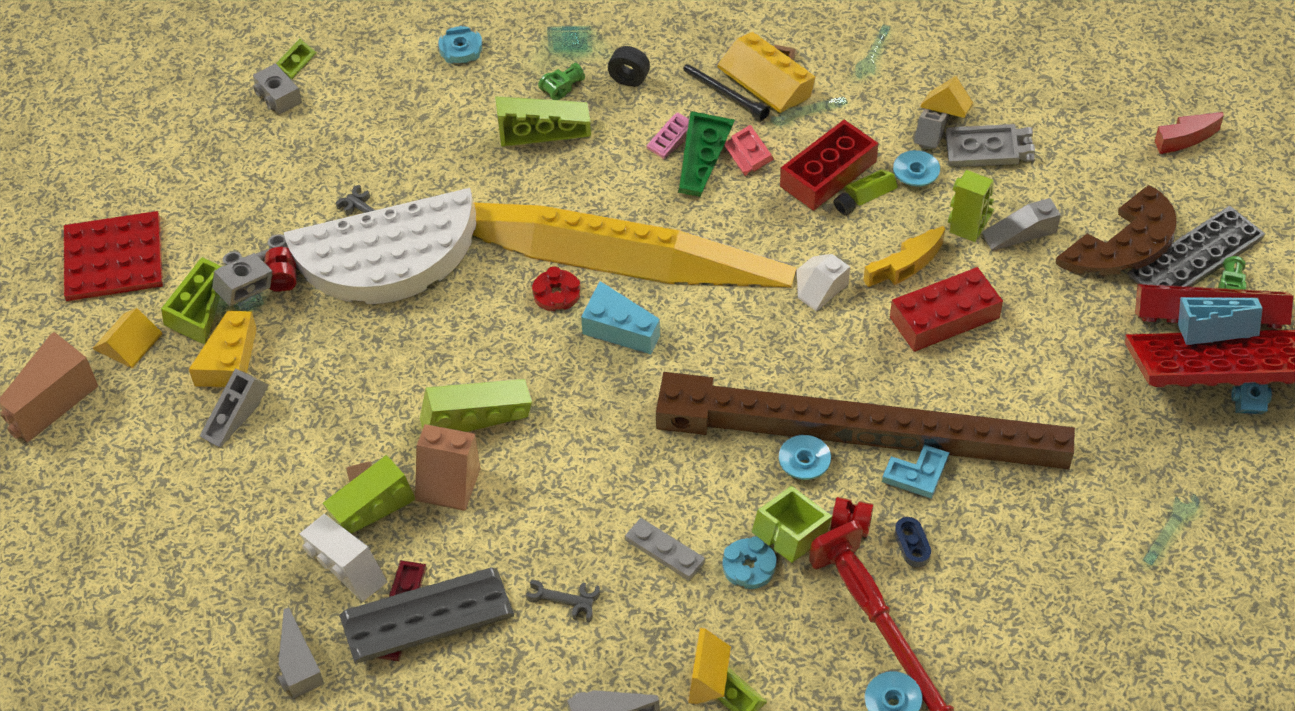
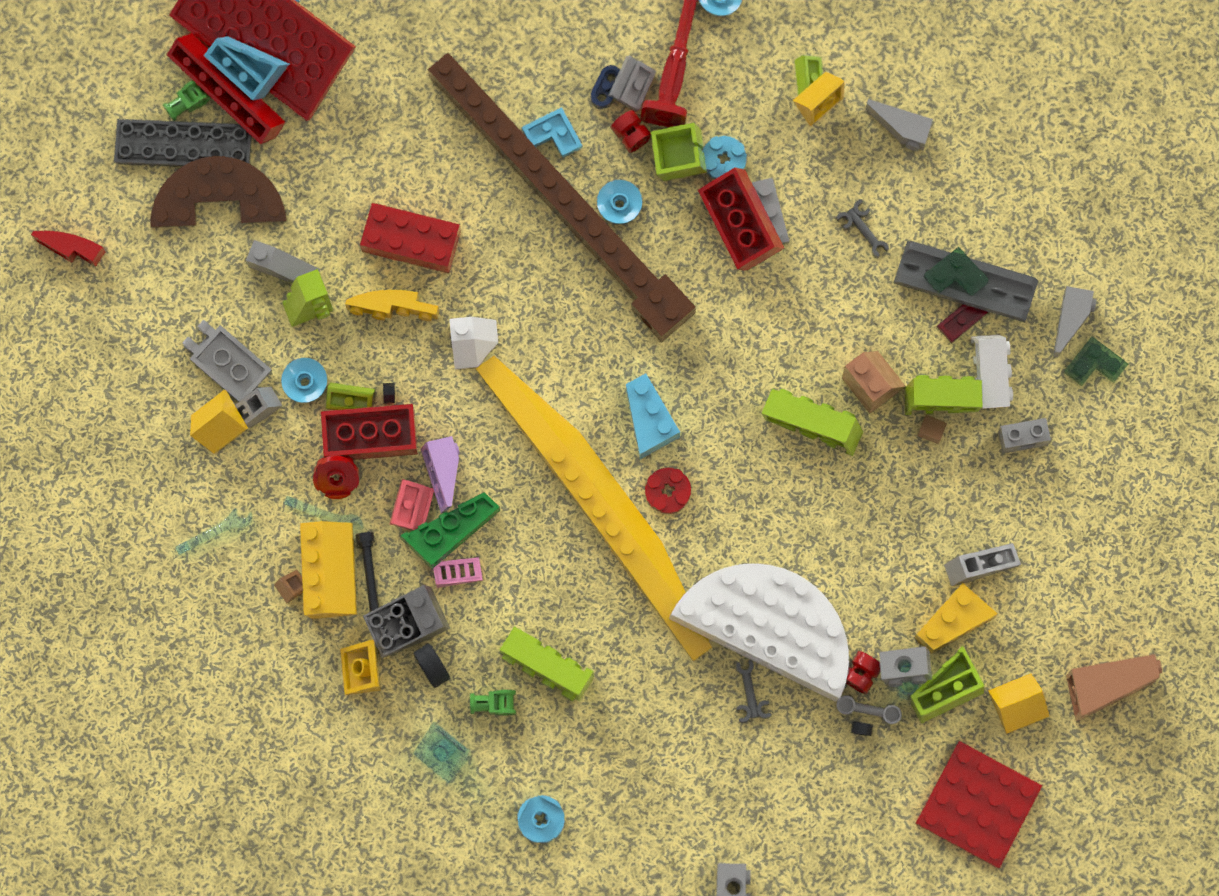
camera: 140 degrees left, 25 degrees up
(247, 646) = (1095, 356): none -> clear green plate
(250, 233) = (861, 728): none -> black axle
(268, 525) = (1024, 435): none -> light grey brick
(439, 613) = (956, 267): none -> clear green plate
(674, 84) = (406, 621): none -> flat silver slope
(676, 43) = (360, 668): none -> yellow slope
(682, 509) = (741, 219): none -> red brick
(754, 184) = (441, 462): none -> lavender slope
(820, 125) = (338, 465): none -> red plate
(892, 558) = (632, 83): none -> light grey plate

